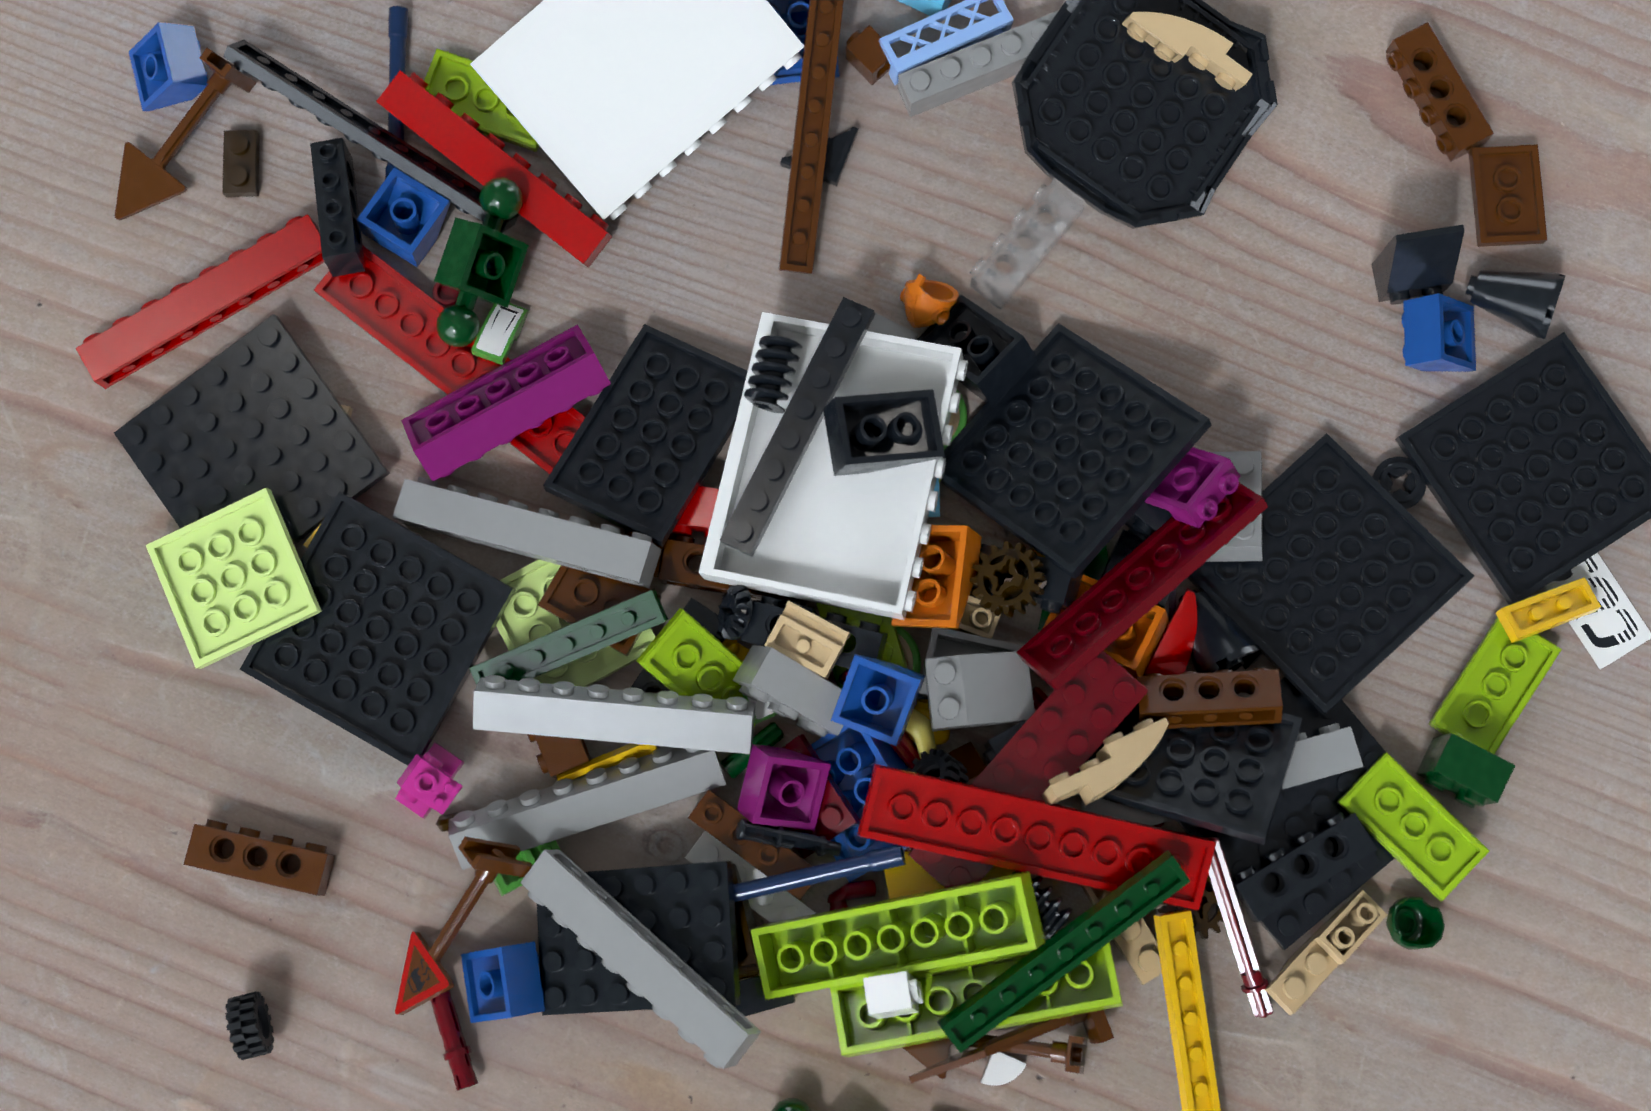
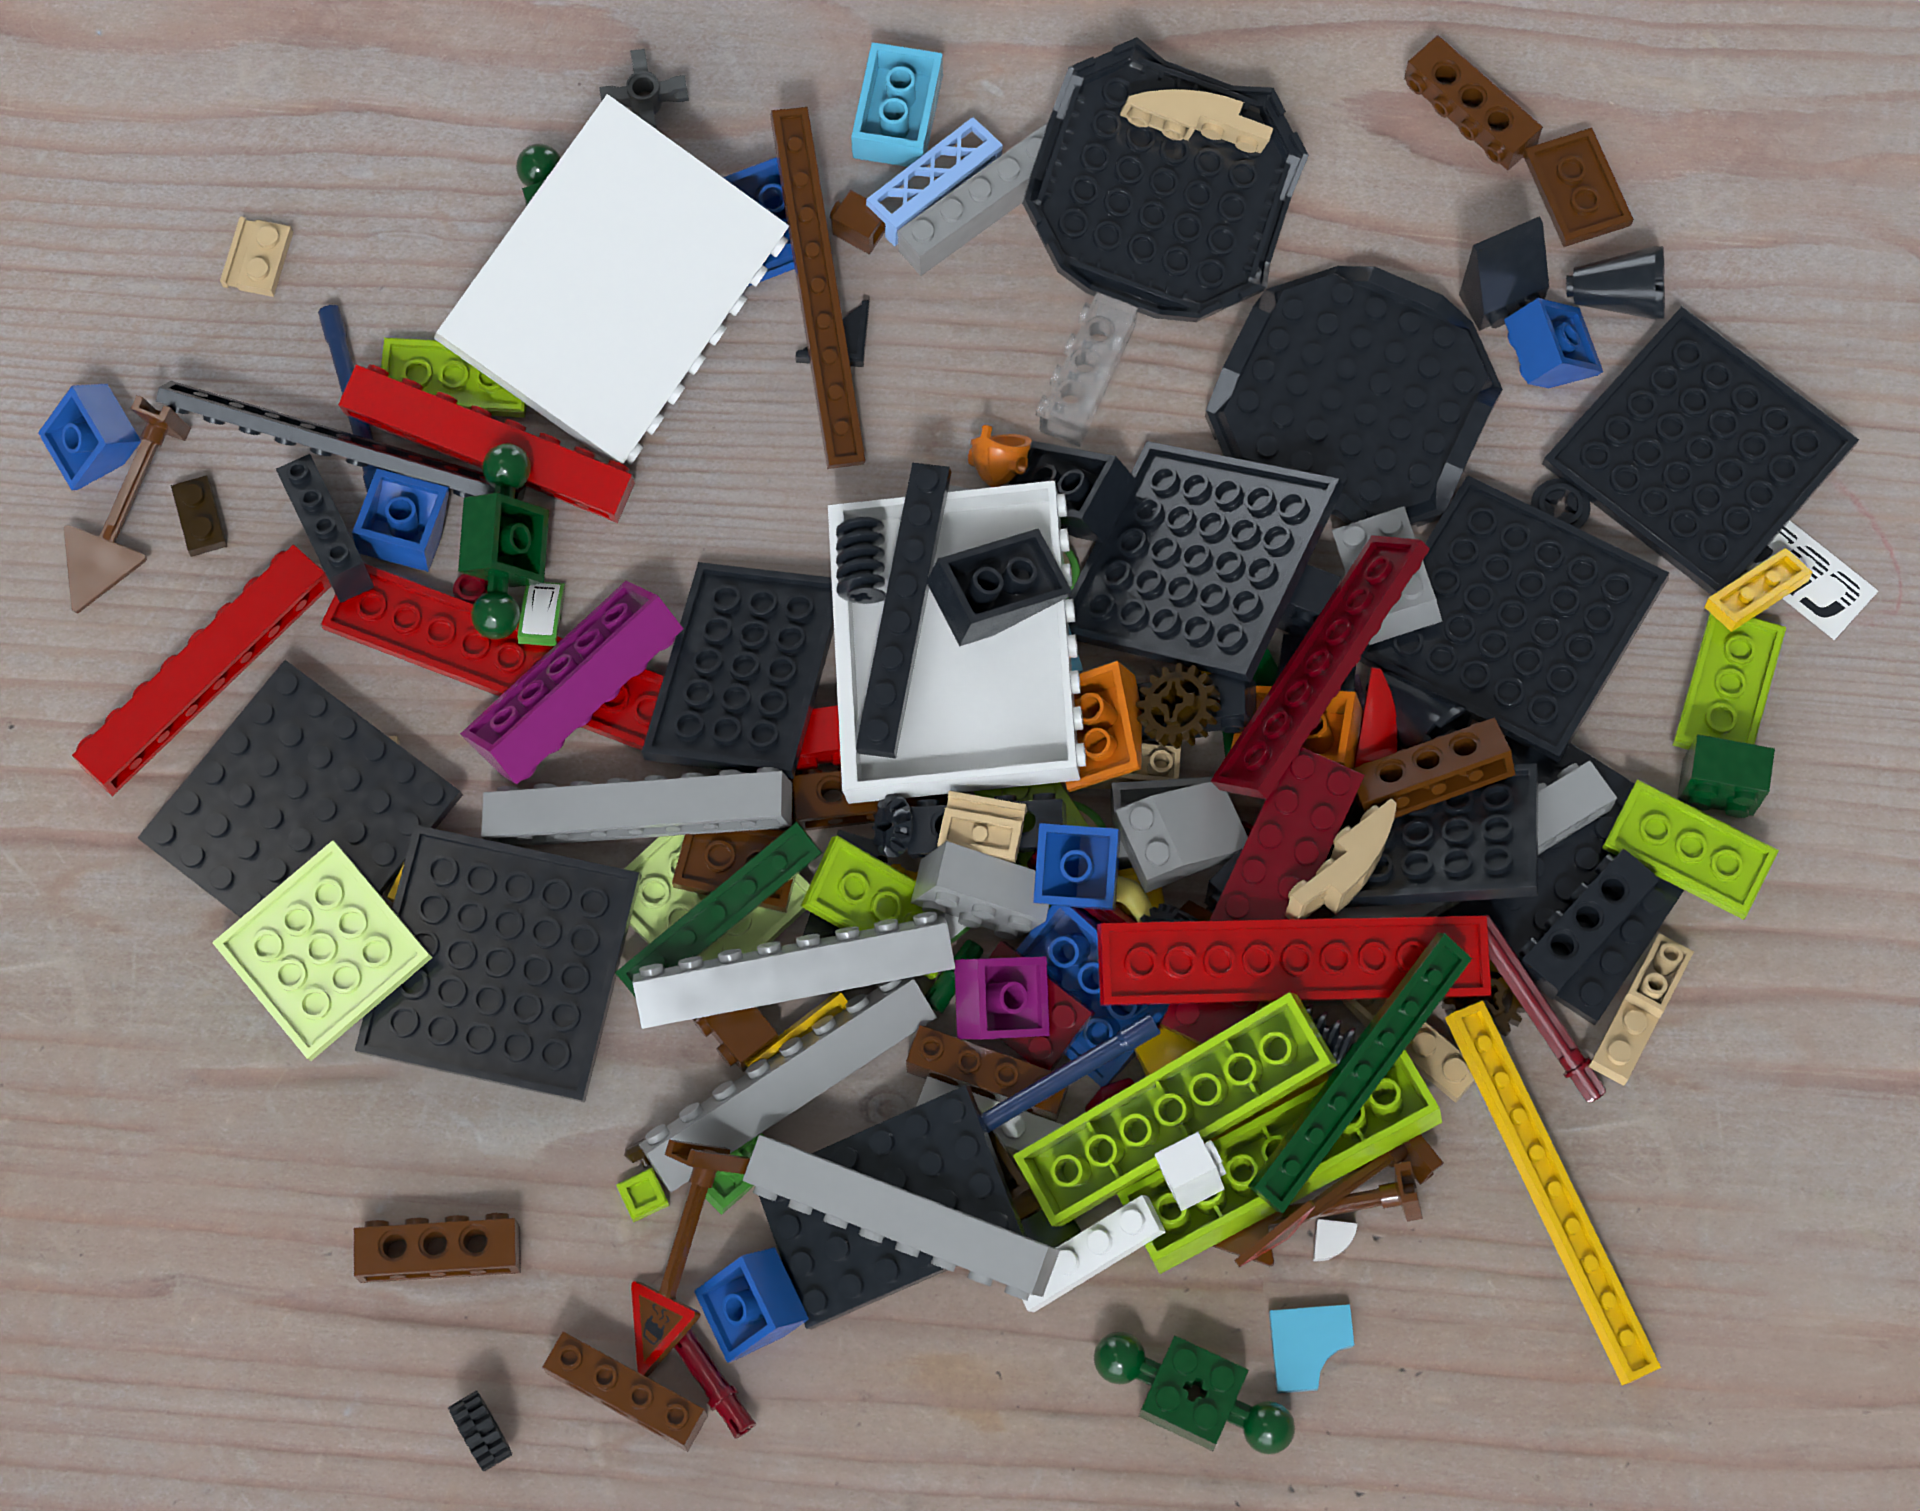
camera: 20 degrees left, 10 degrees down
(377, 1025) = (625, 1391): none -> reddish brown brick
(430, 781) = (604, 1107): dark pink tile -> none
(440, 861) = (642, 1195): none -> lime tile
(786, 838) = (1022, 1050): black piece -> none
(804, 1025) = (1100, 1248): none -> white plate
(1196, 487) = (1347, 552): magenta plate -> none
(1254, 330) = (1359, 386): none -> black plate
(1415, 923) = (1725, 952): dark green hair -> none

